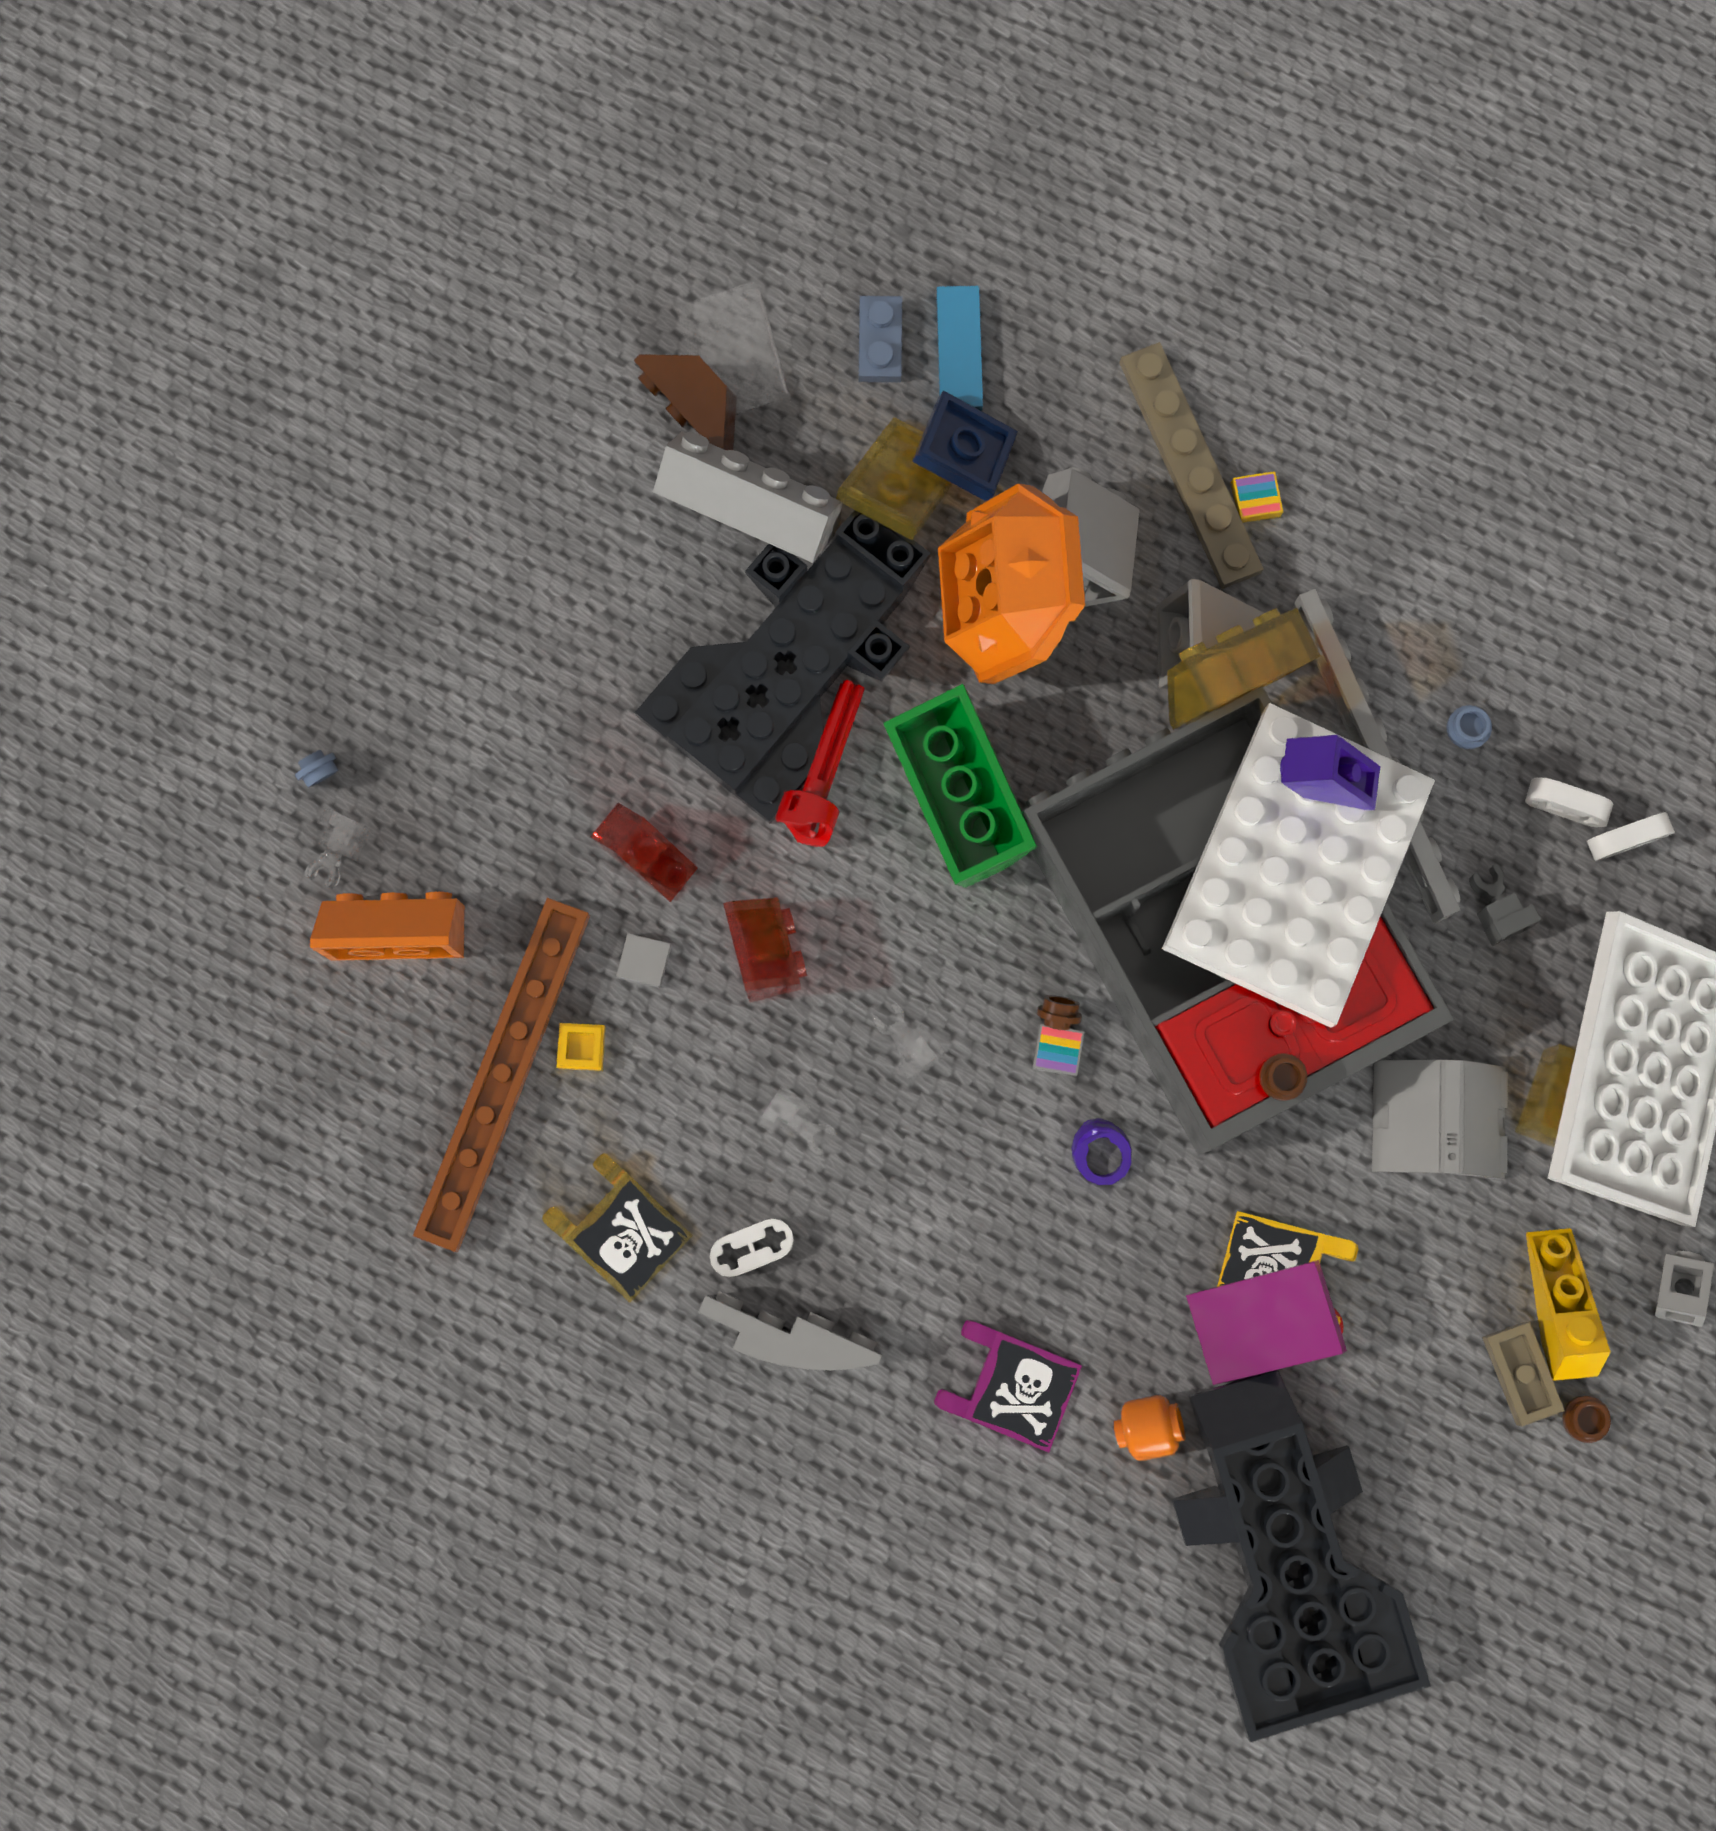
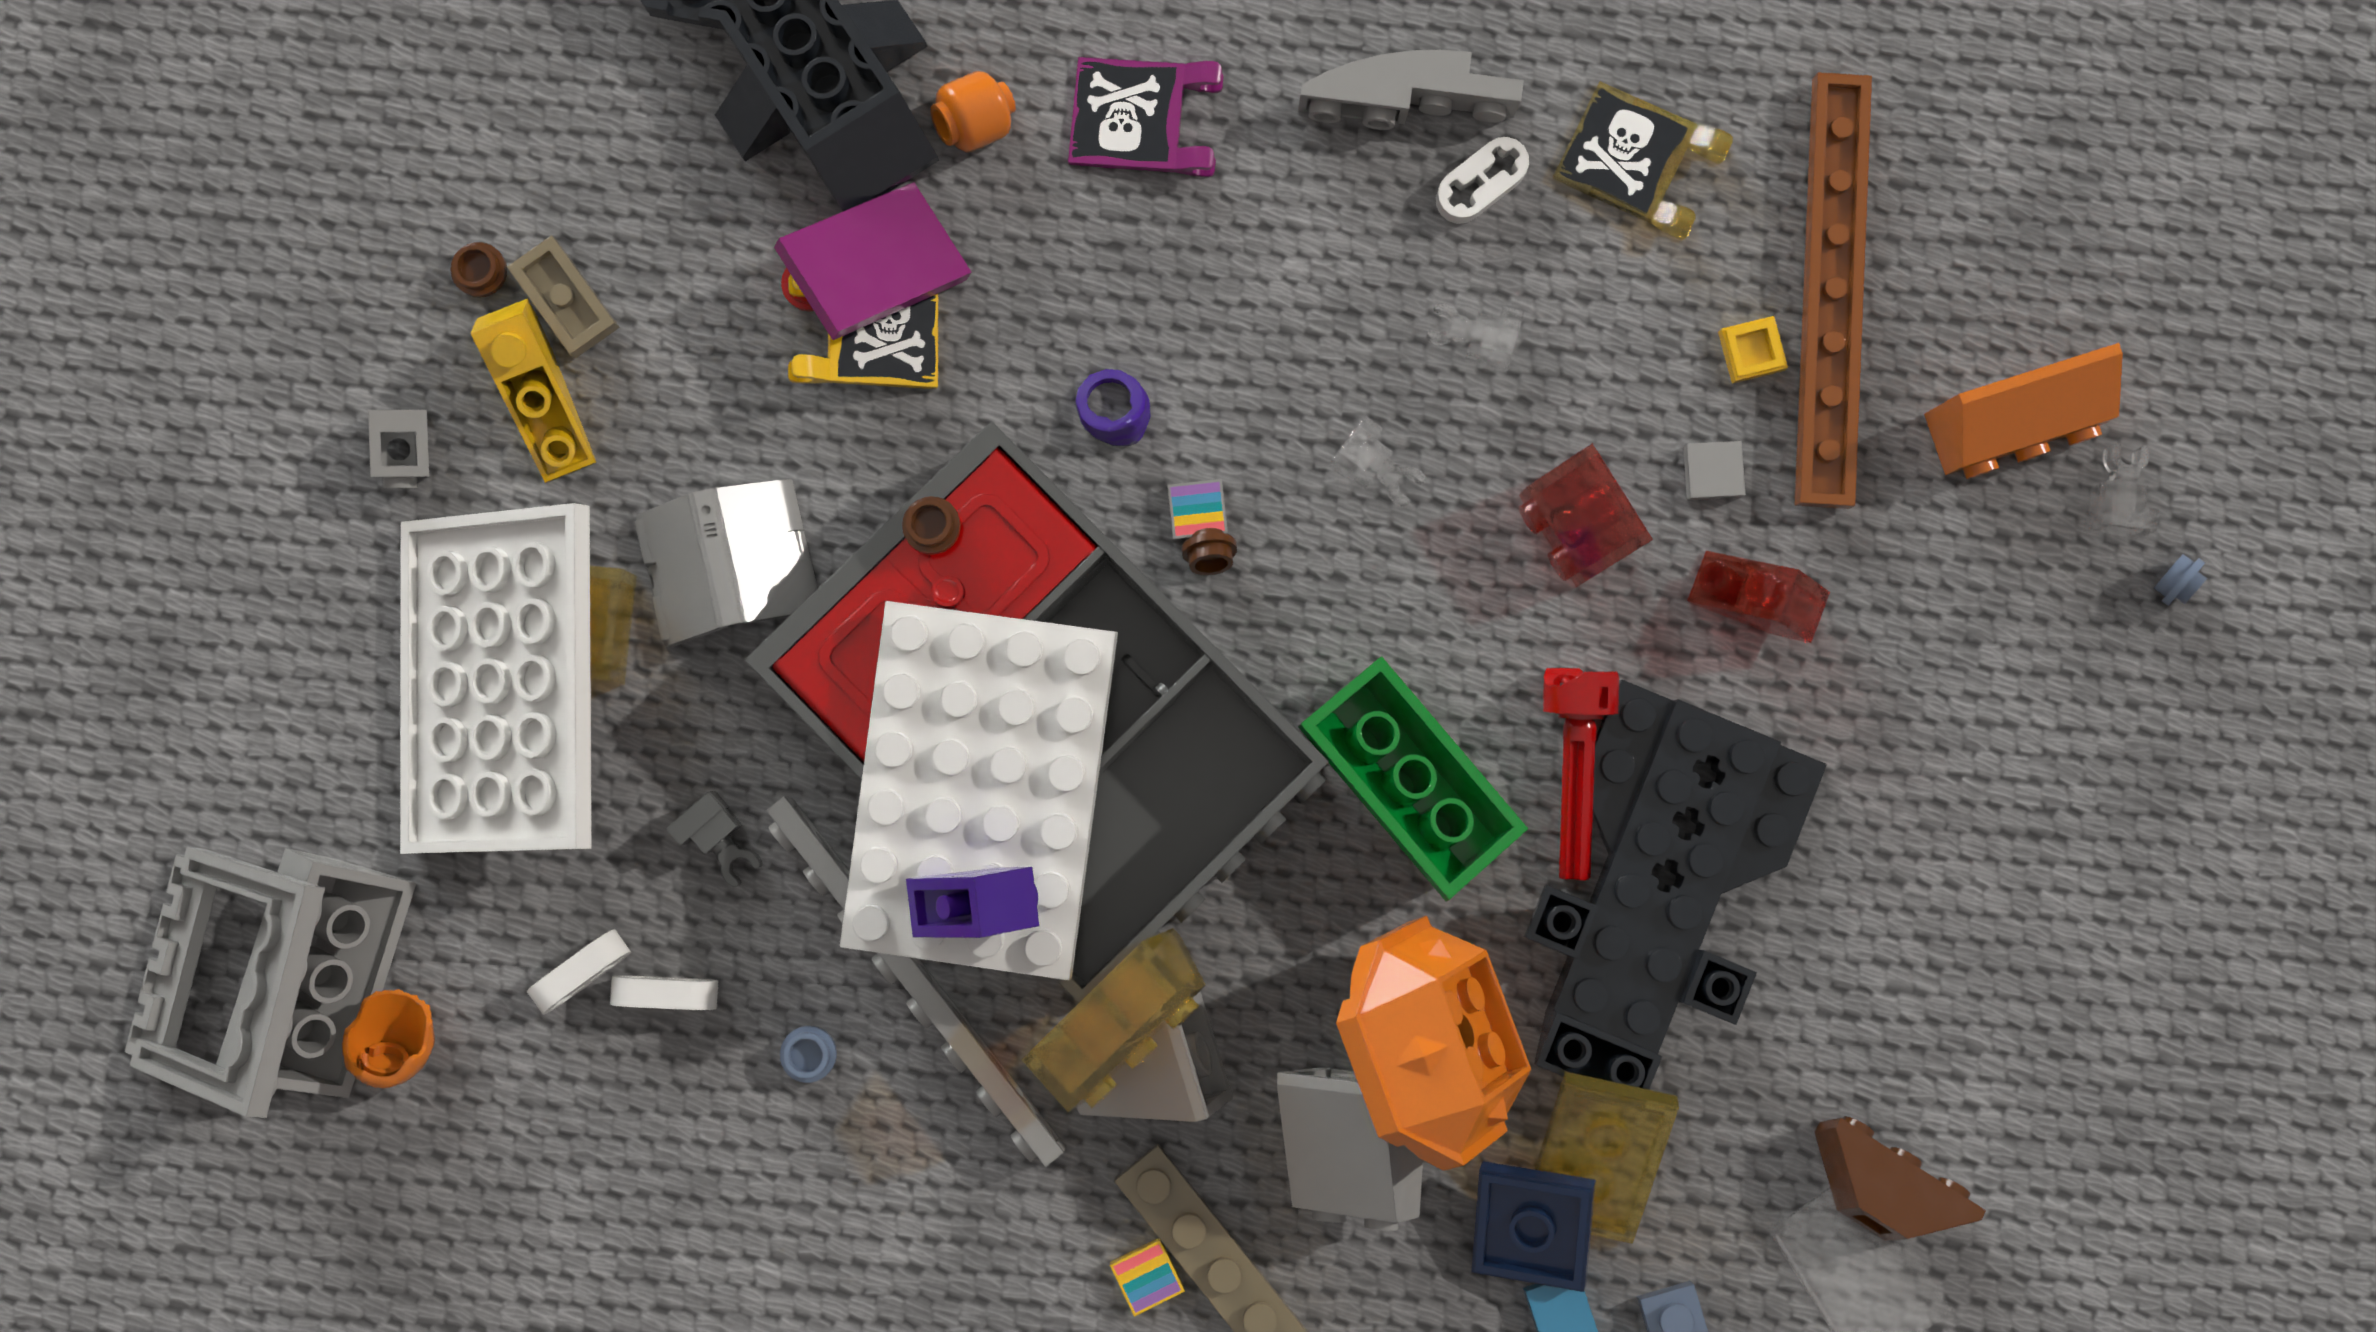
camera: 160 degrees right, 5 degrees up
(748, 496) = (1786, 1066): light grey slope -> none

